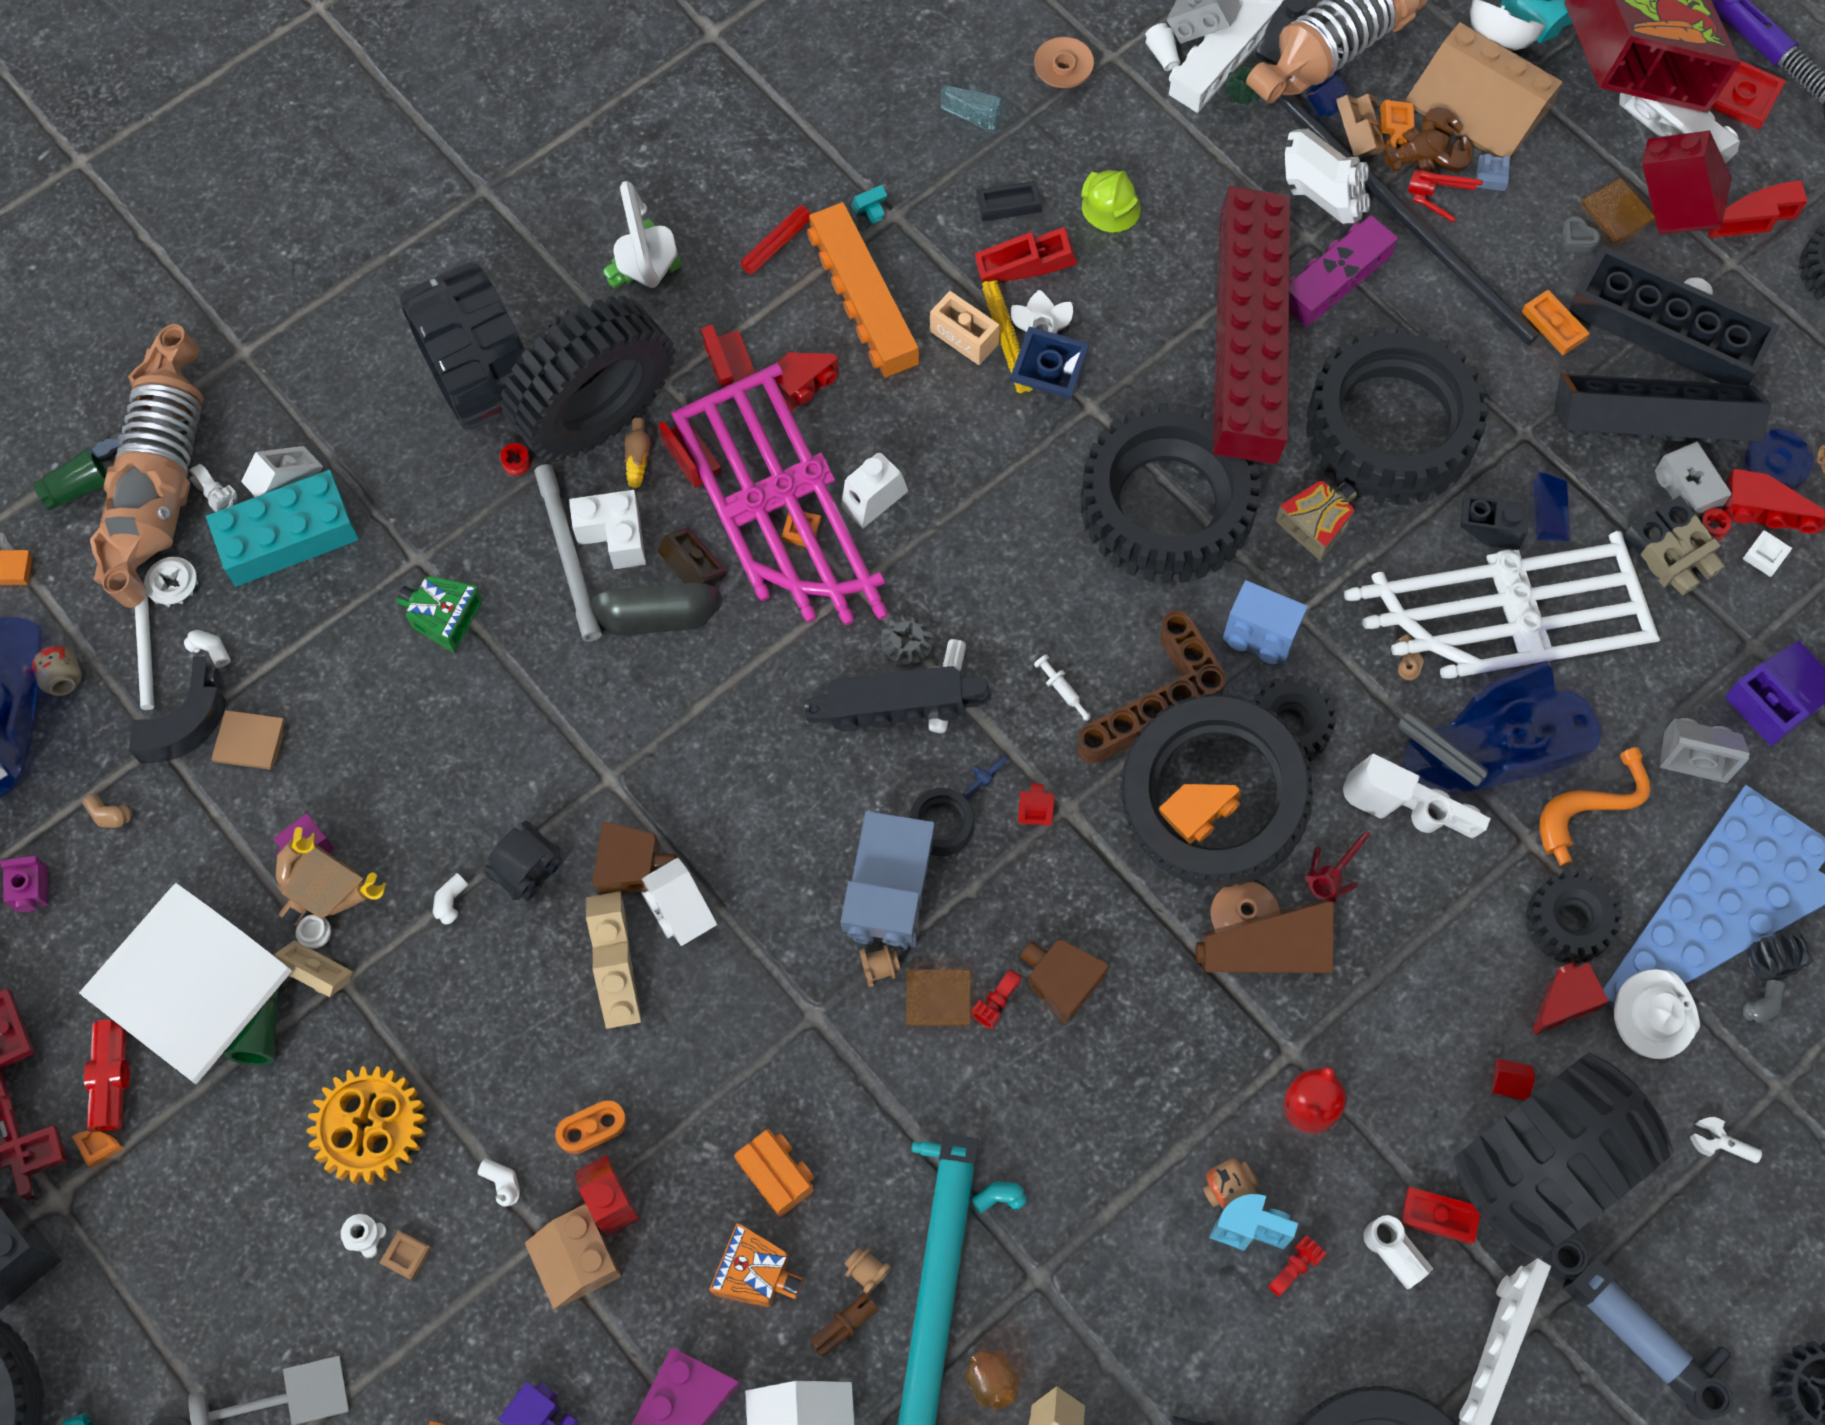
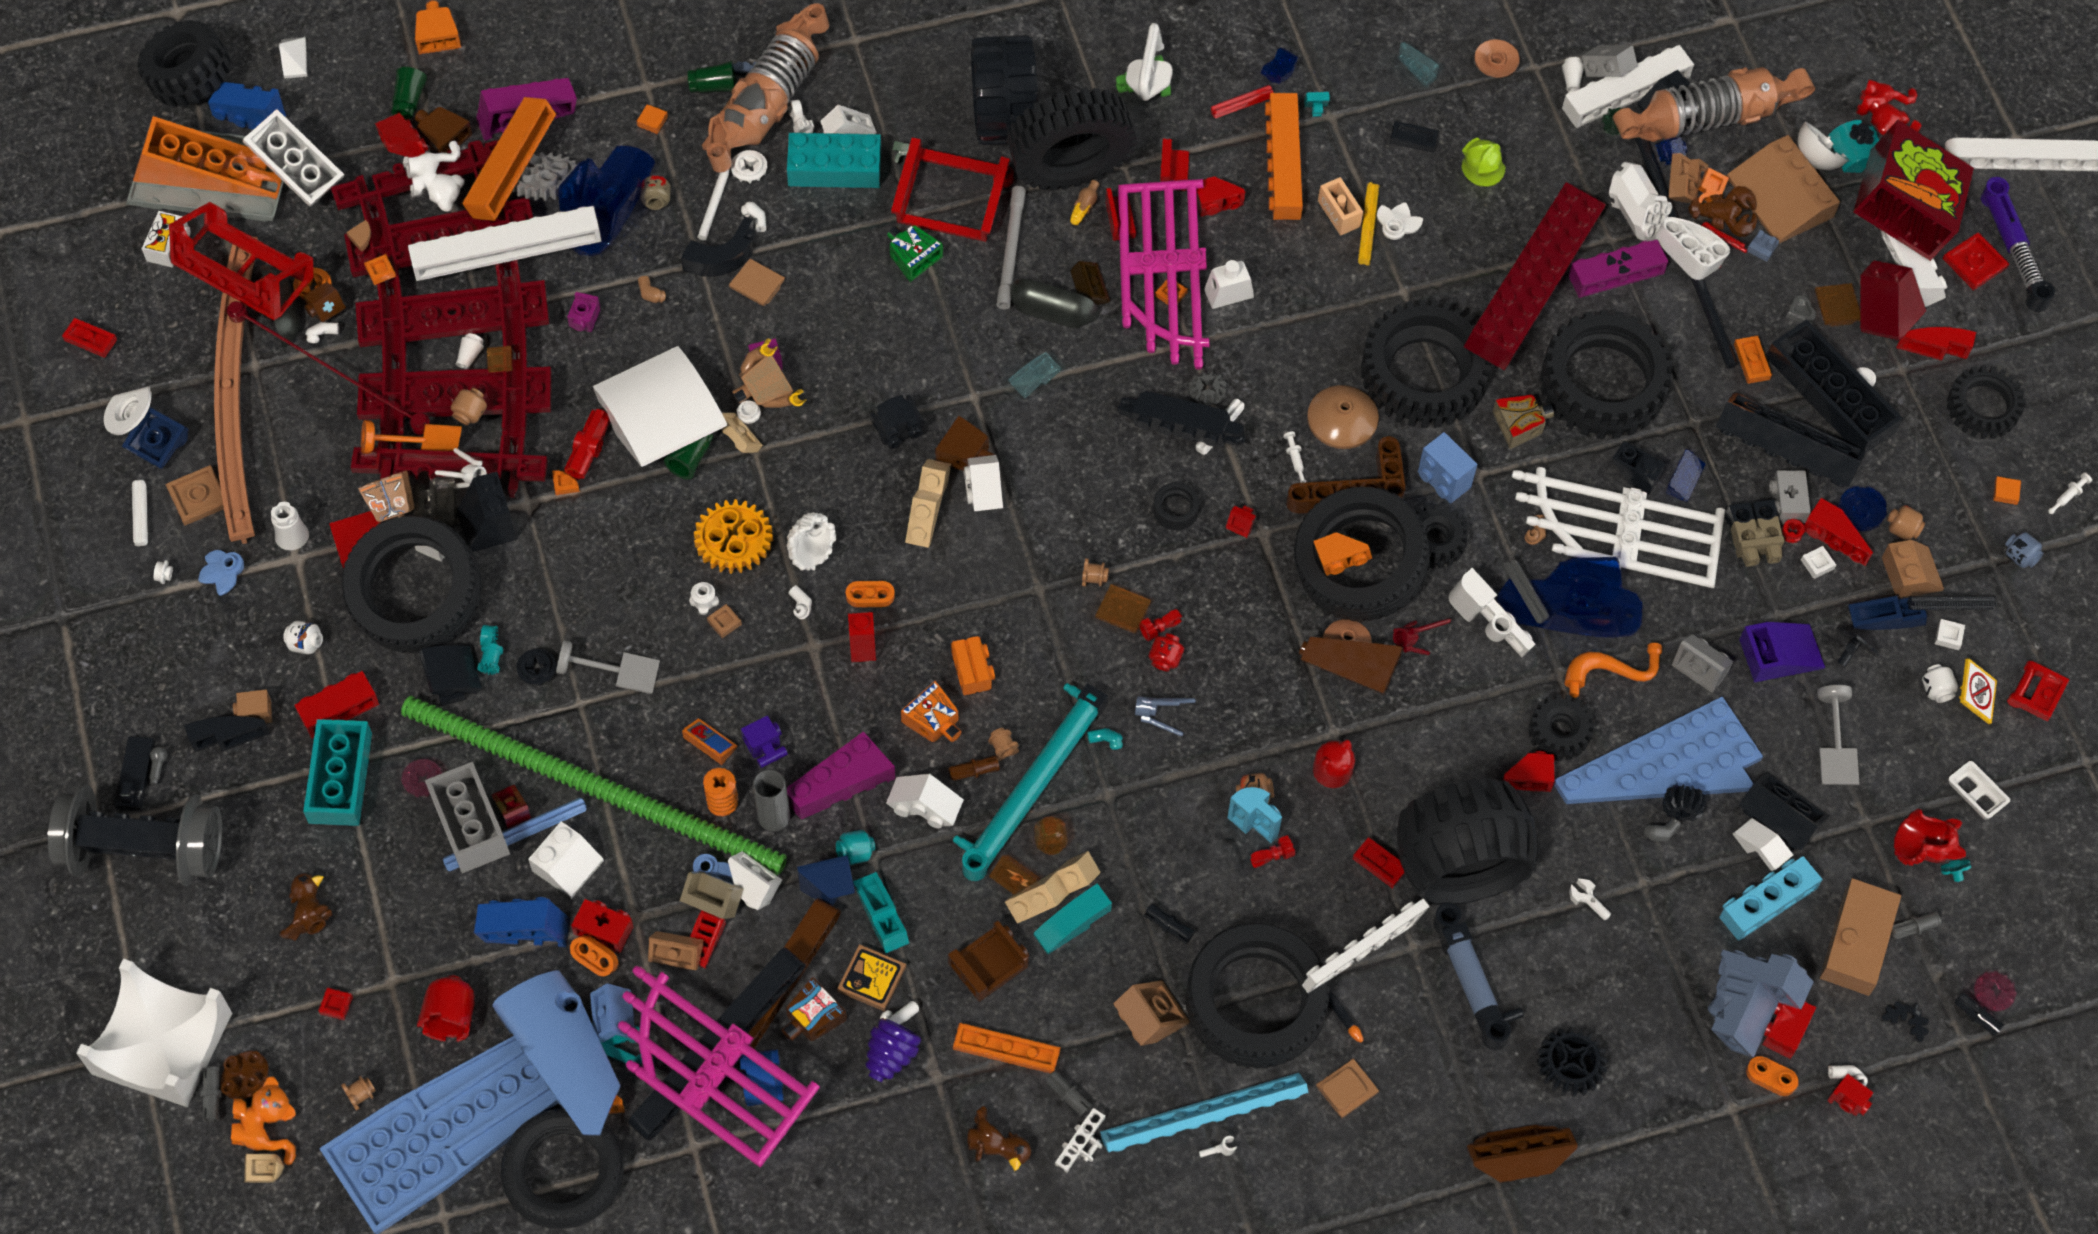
camera: 20 degrees right, 5 degrees down
(372, 475) = (902, 148): none -> tile
(387, 484) = (910, 168): none -> red piece
(444, 899) = (840, 424): white arm -> none
(478, 1091) = (808, 543): none -> white piece
(572, 1257) = (825, 661): medium nougat slope -> none
(610, 519) = (1049, 238): white brick -> none
(674, 715) = (1034, 373): none -> clear light blue slope
(804, 175) = (1280, 67): none -> clear blue bracket
(888, 881) = (1124, 519): sand blue brick -> none
(984, 777) = (1216, 491): dark blue piece -> none
(1024, 1037) = (1166, 652): none -> red head
(1027, 256) = (1407, 177): red slope -> none
(1034, 1123) = (1148, 706): none -> sand blue plant
(1050, 362) = (1387, 250): dark blue slope -> none
(1063, 976) = (1209, 628): reddish brown torso -> none
(1089, 622) = (1342, 427): none -> medium nougat dish
(1400, 1253) = (1342, 871): white piece -> none
(1417, 207) = (1692, 246): none -> white beam
(1656, 1014) = (1584, 806): white hat -> none

